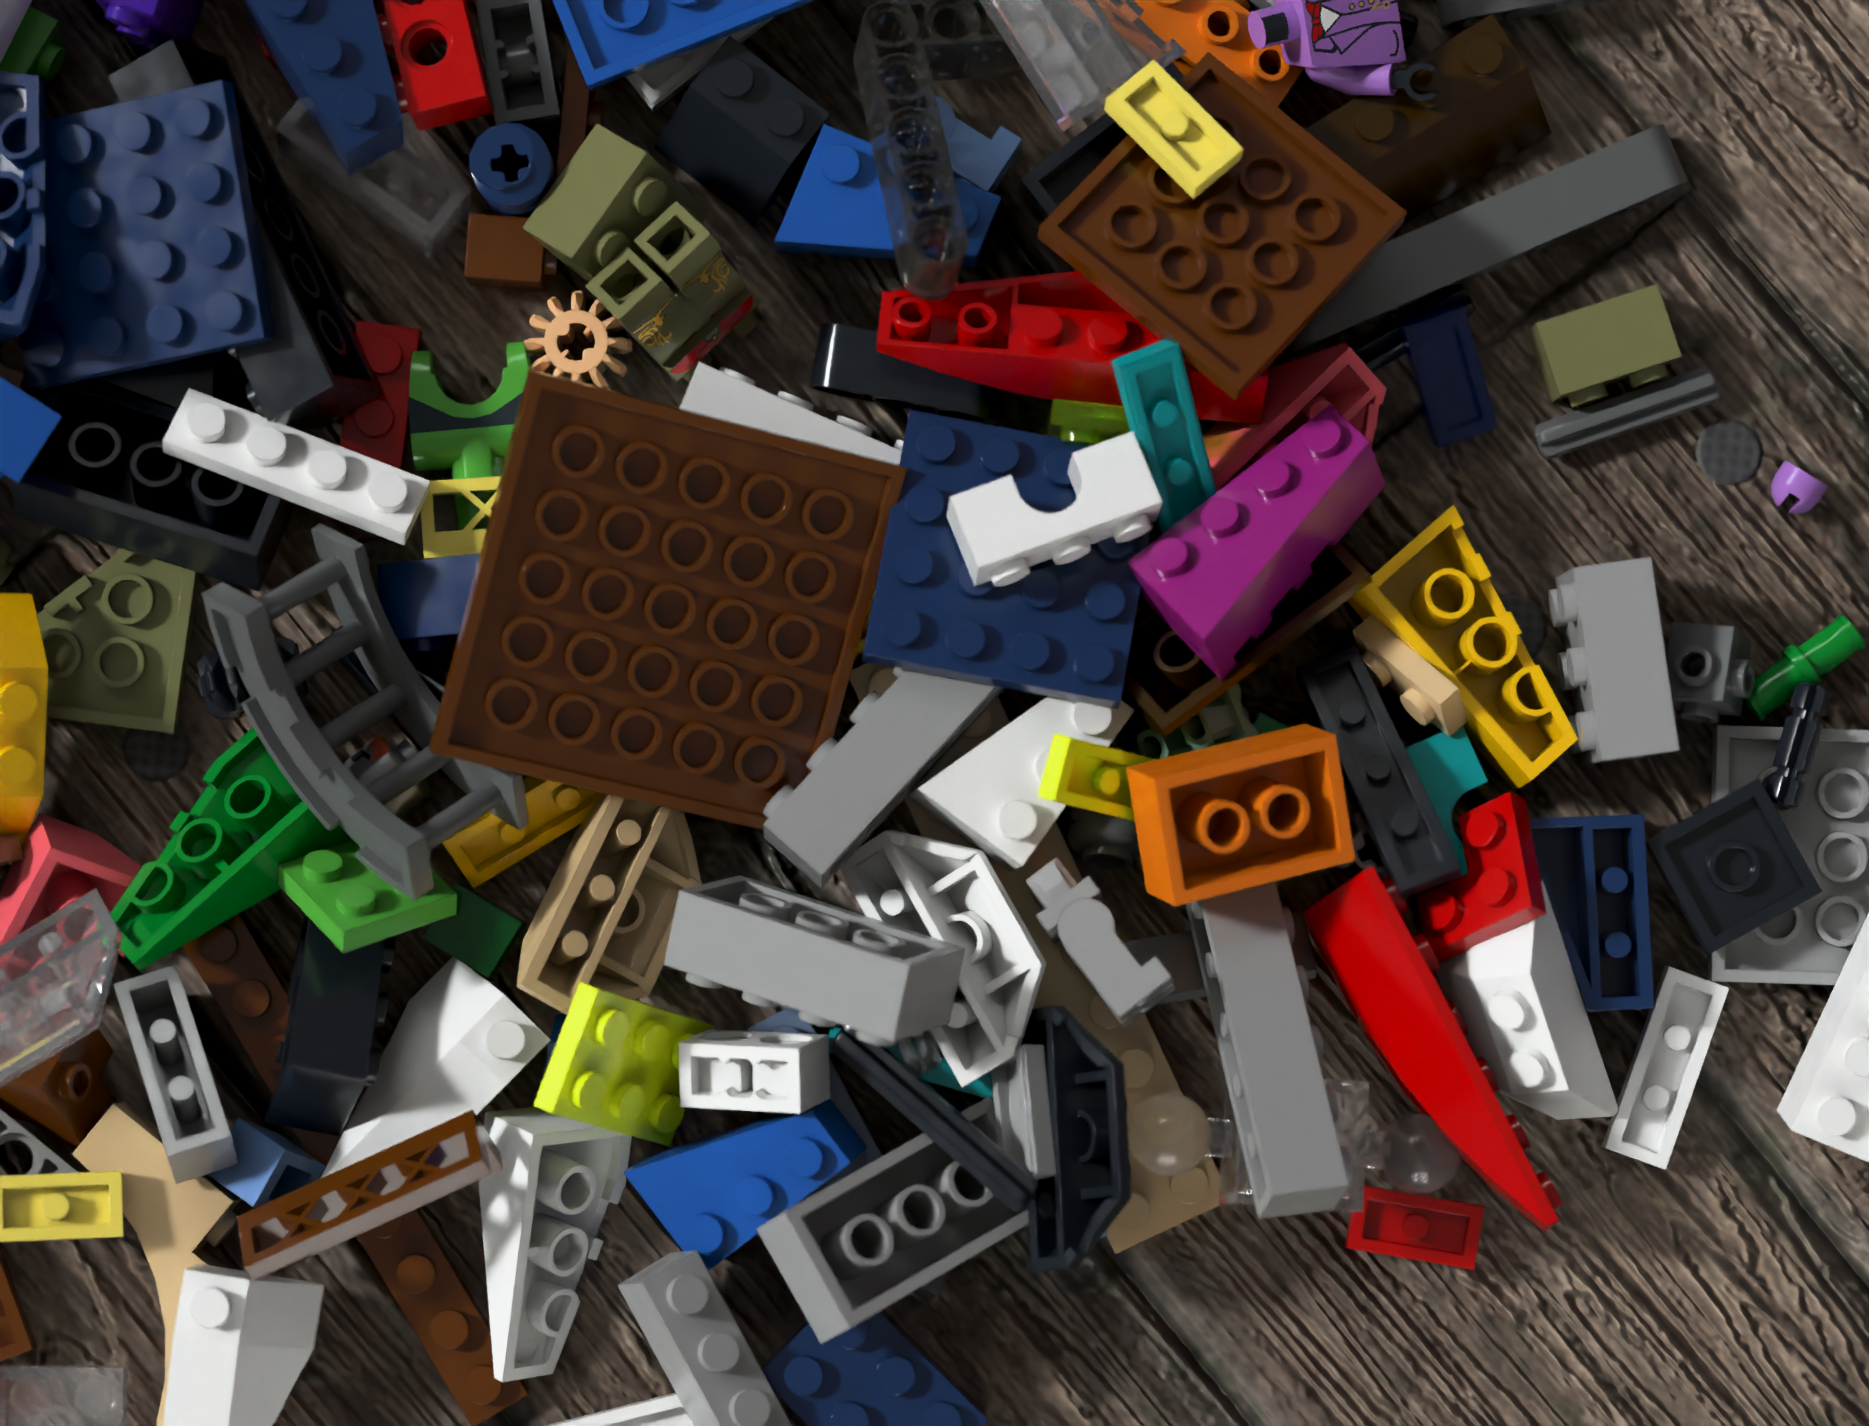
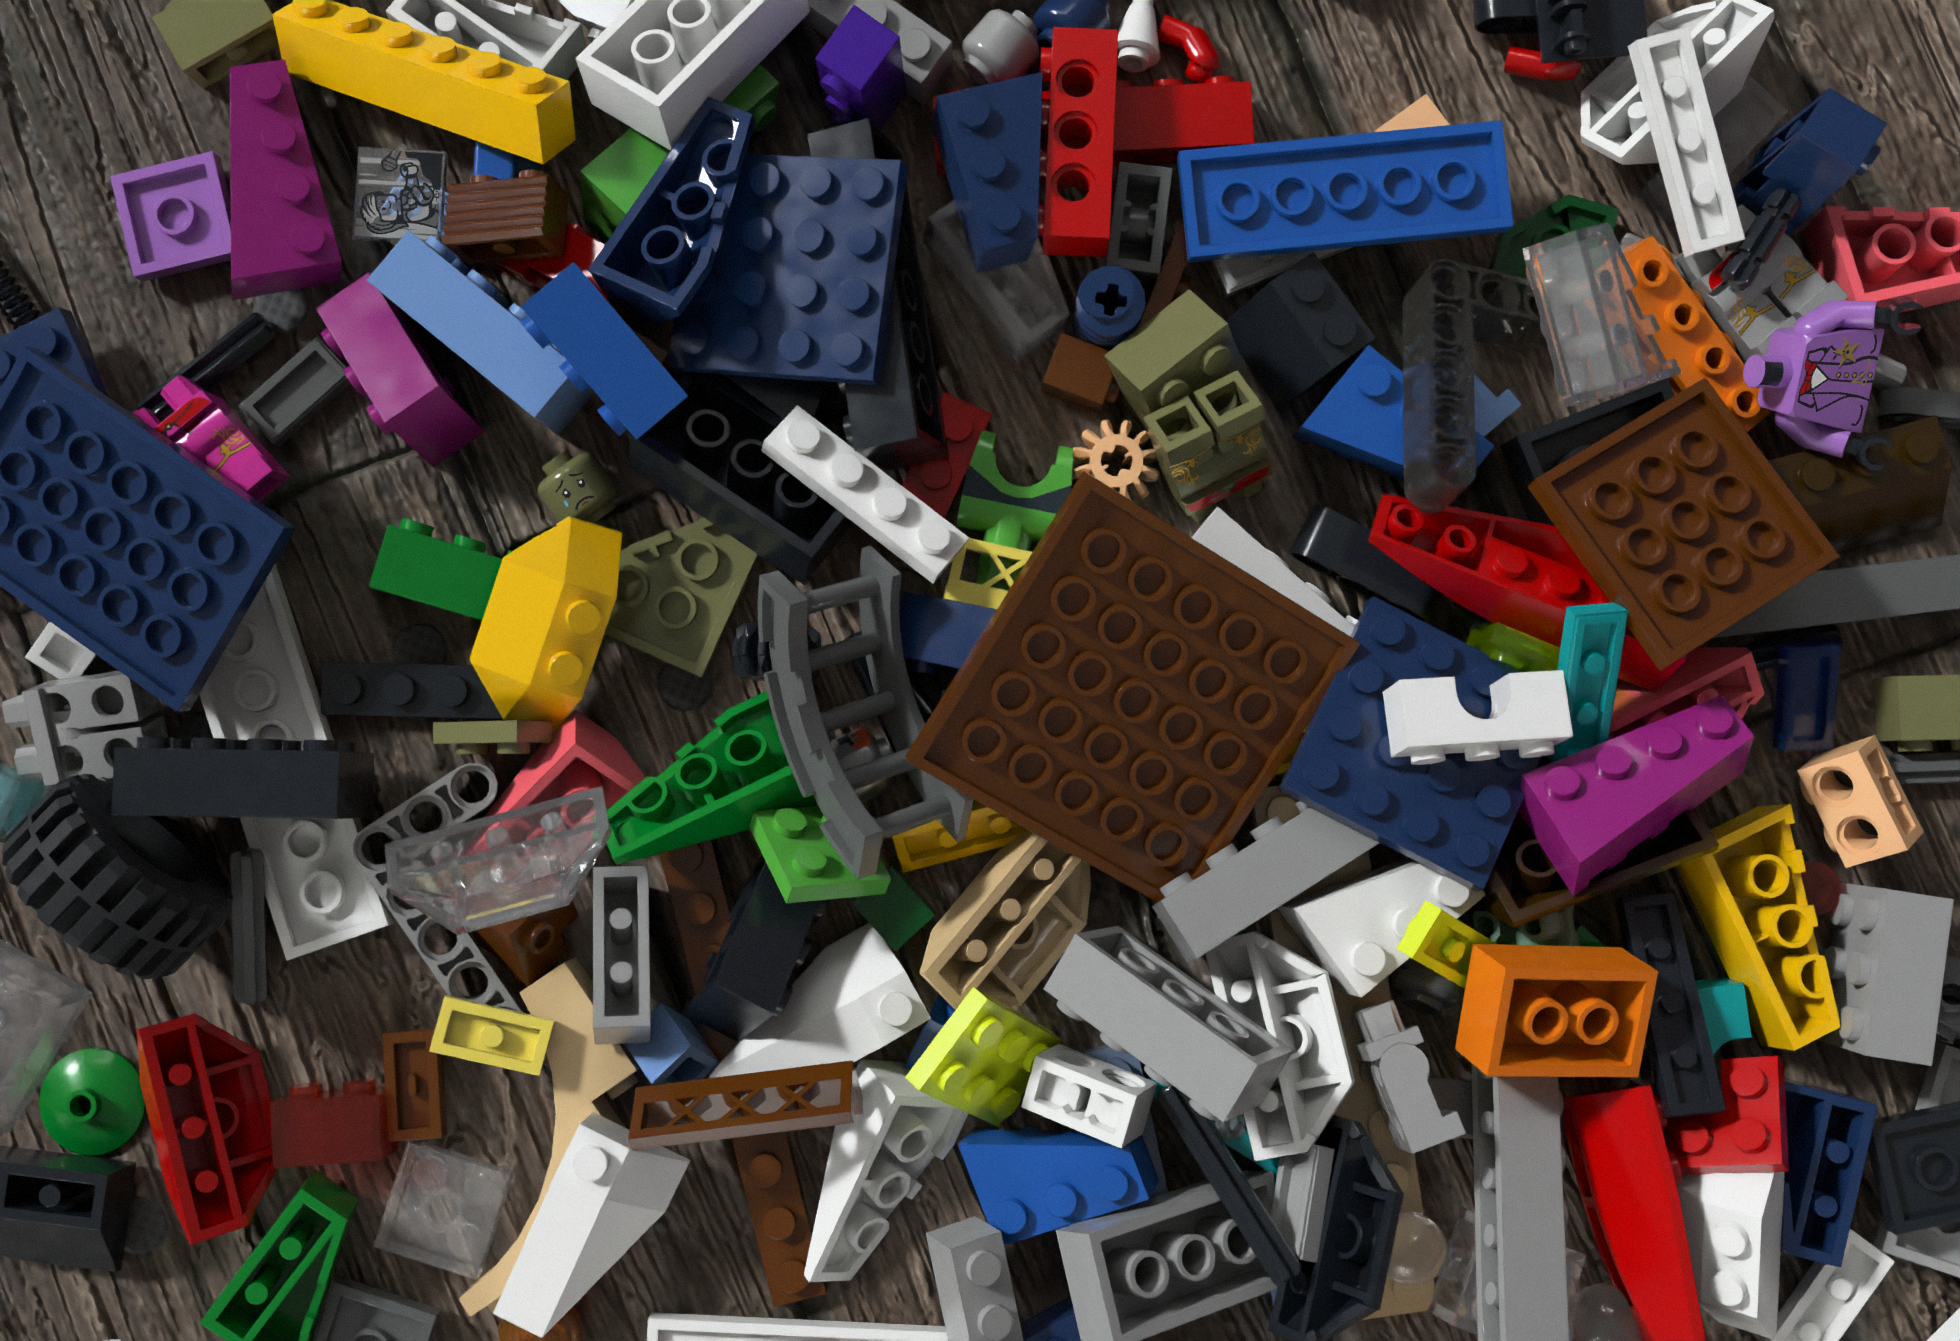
camera: 25 degrees right, 0 degrees up
(1173, 129) = (1669, 431): light yellow plate -> none
(1421, 687) = (1720, 942): tan plate -> none
(1523, 591) = (1821, 887): none -> clear red plate
(1546, 471) = (1874, 798): none -> light nougat brick

